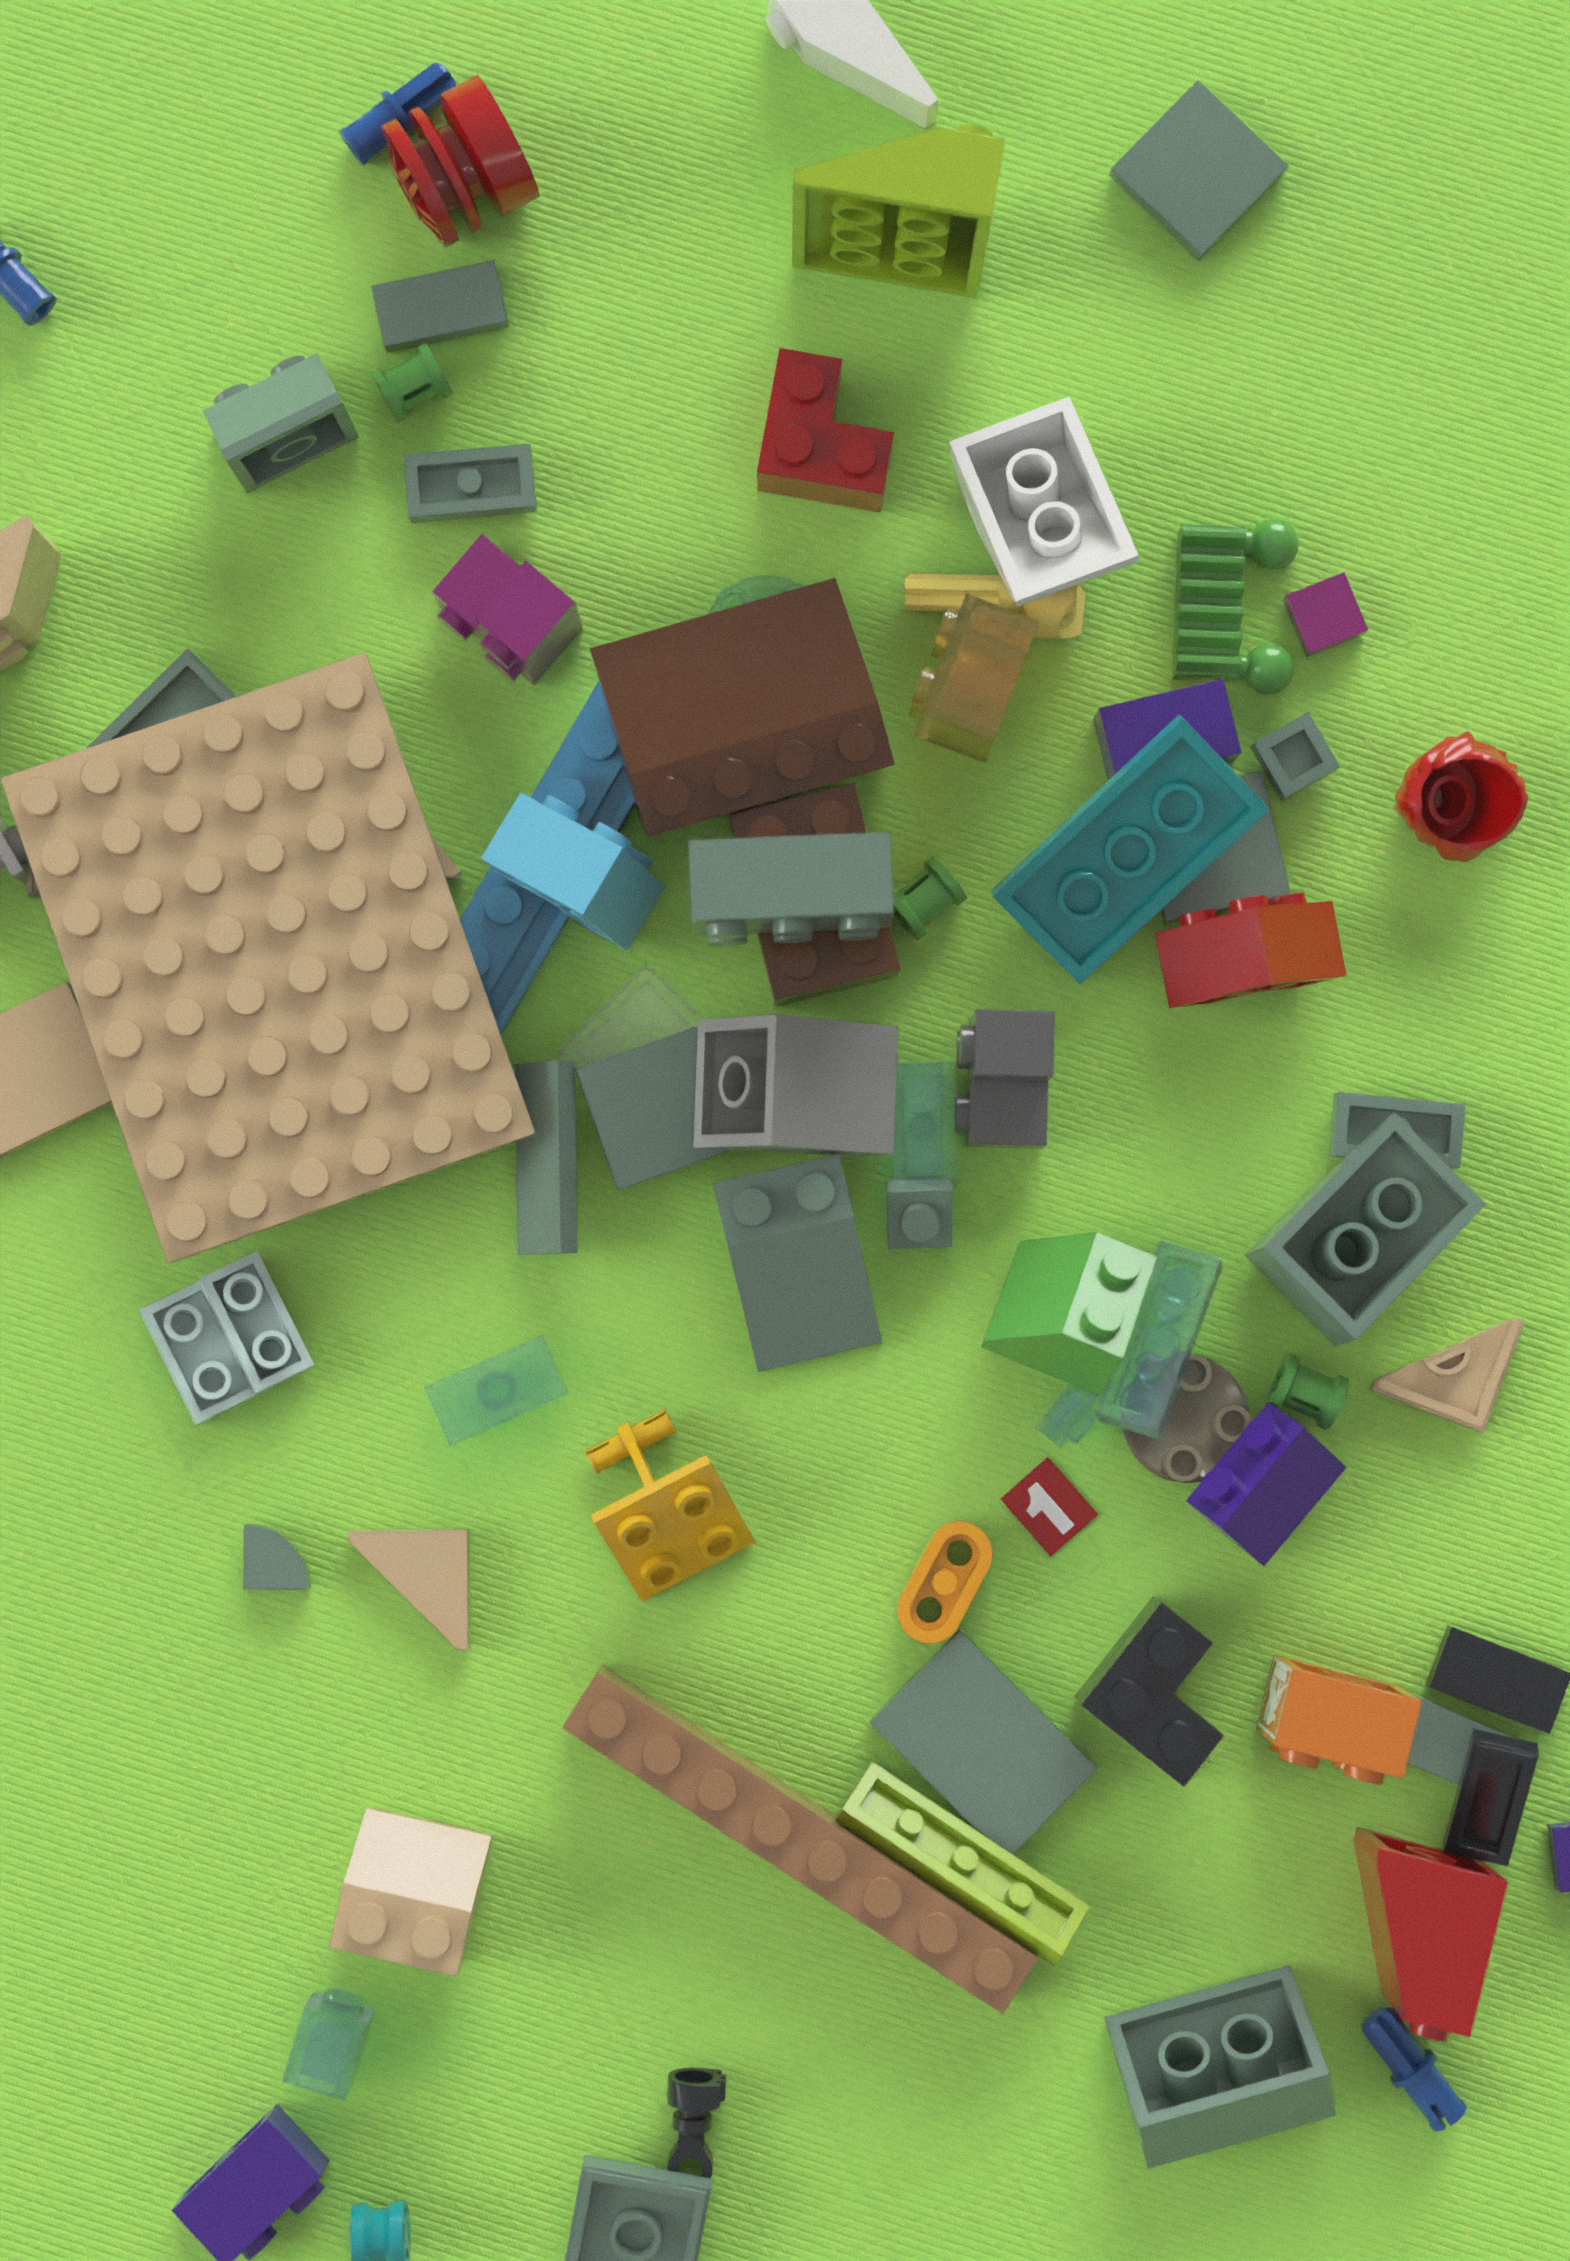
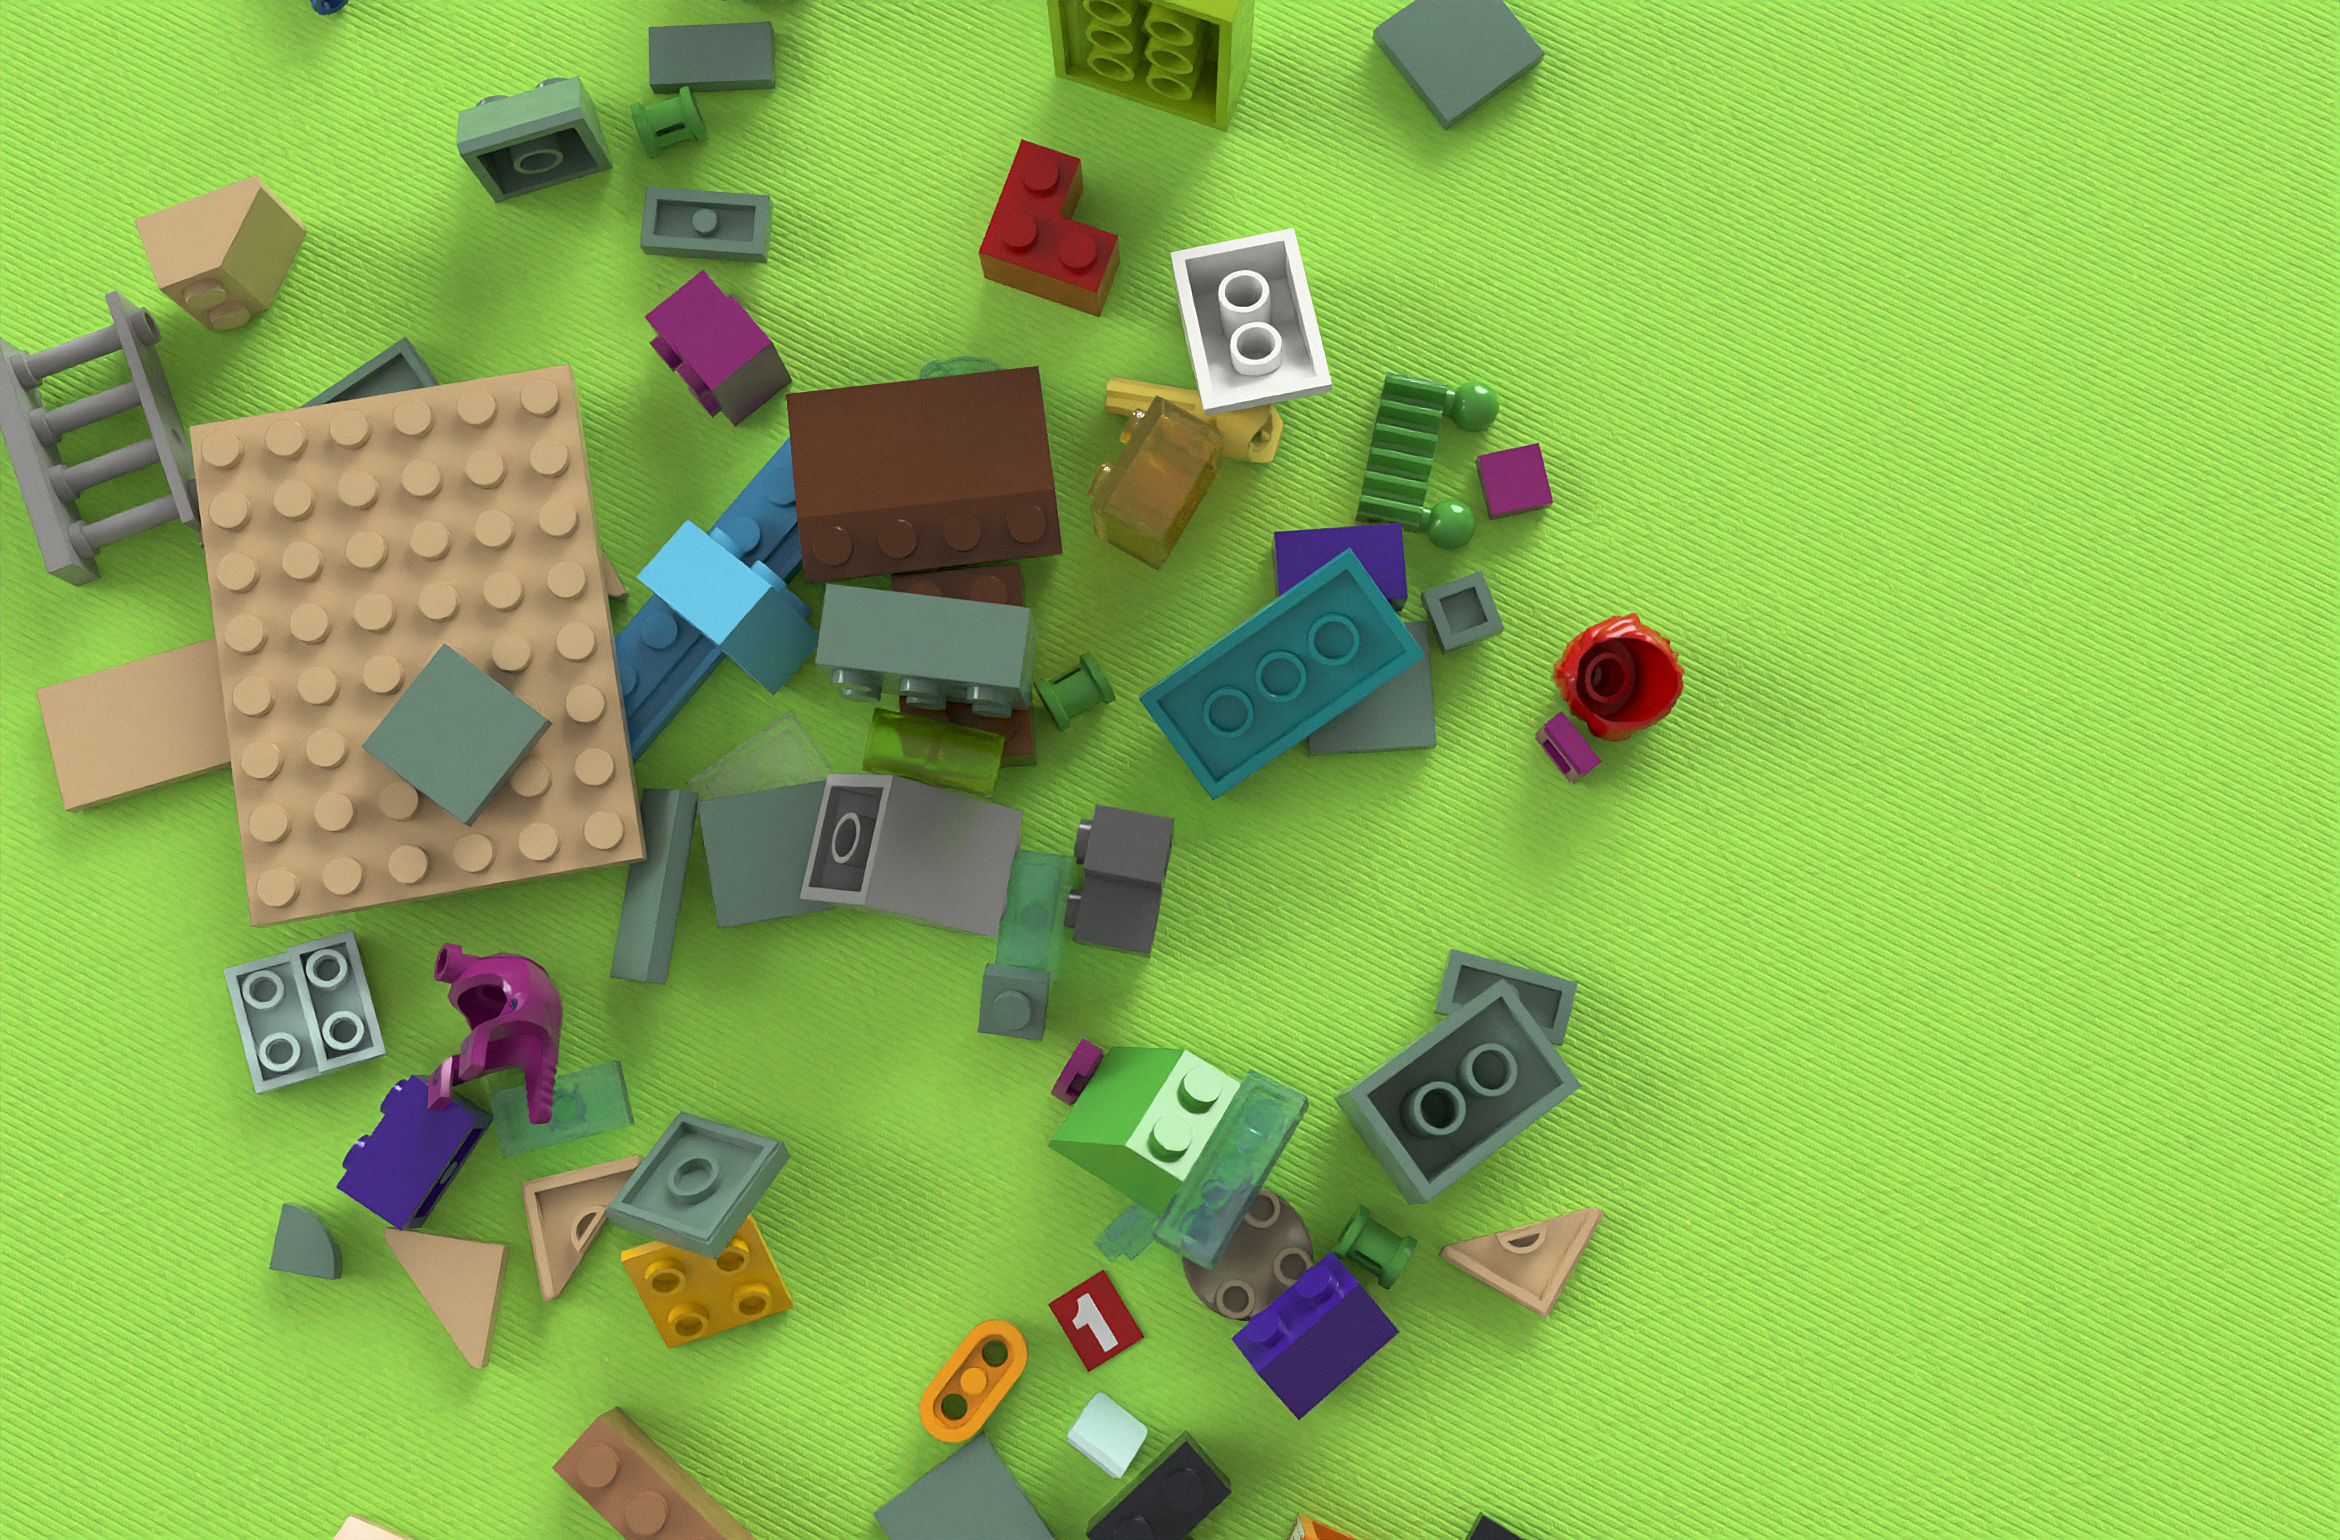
camera: 10 degrees right, 5 degrees down
(335, 1043) = (457, 735): none -> sand green tile
(361, 1453) = (412, 1153): none -> dark purple brick
(434, 1314) = (512, 1021): none -> magenta piece
(522, 1490) = (568, 1216): none -> tan tile
(649, 1439) = (697, 1184): none -> sand green tile
(798, 1262) = (883, 1029): sand green slope -> none
(809, 985) = (933, 752): none -> clear neon green pin
(992, 1271) = (1077, 1072): none -> magenta tile
(1080, 1611) = (1107, 1434): none -> light aqua slope
(1250, 950) = (1386, 793): red brick -> none
(1420, 875) = (1567, 748): none -> magenta tile

